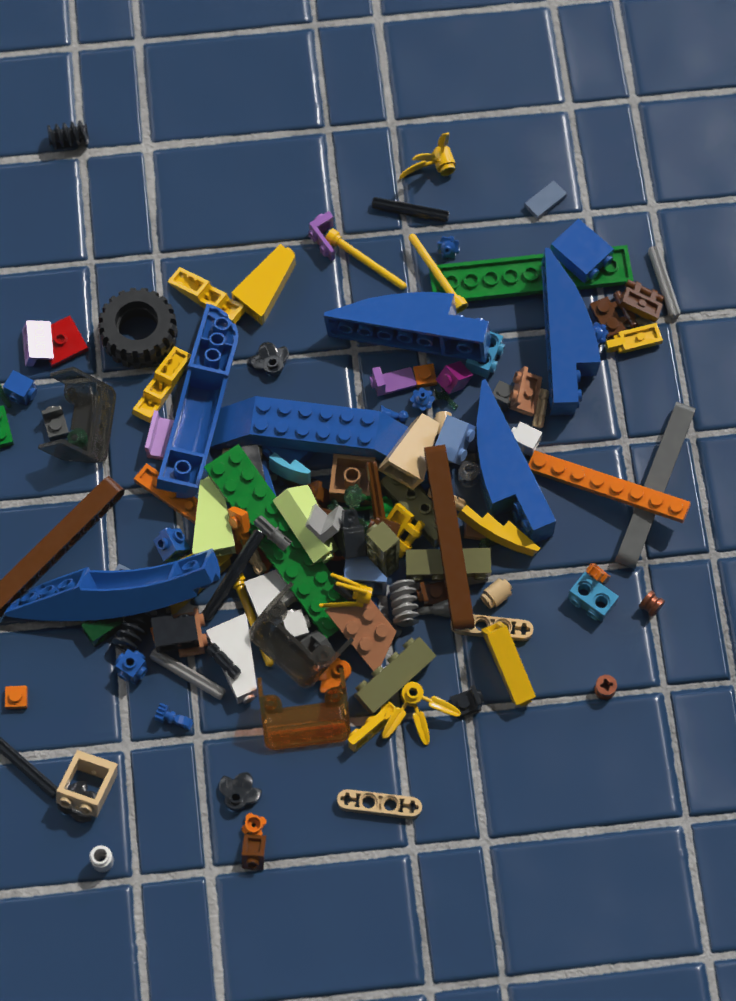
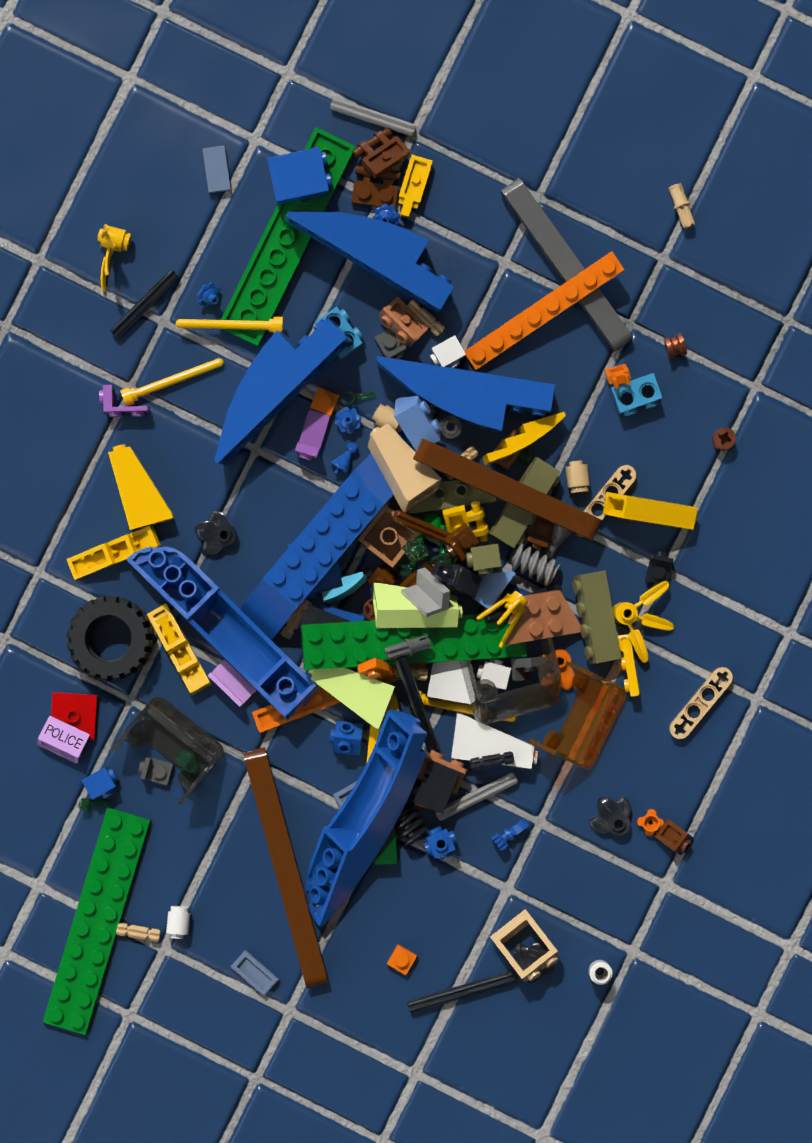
camera: 55 degrees left, 20 degrees up
(454, 377) = (347, 378): magenta brick -> none

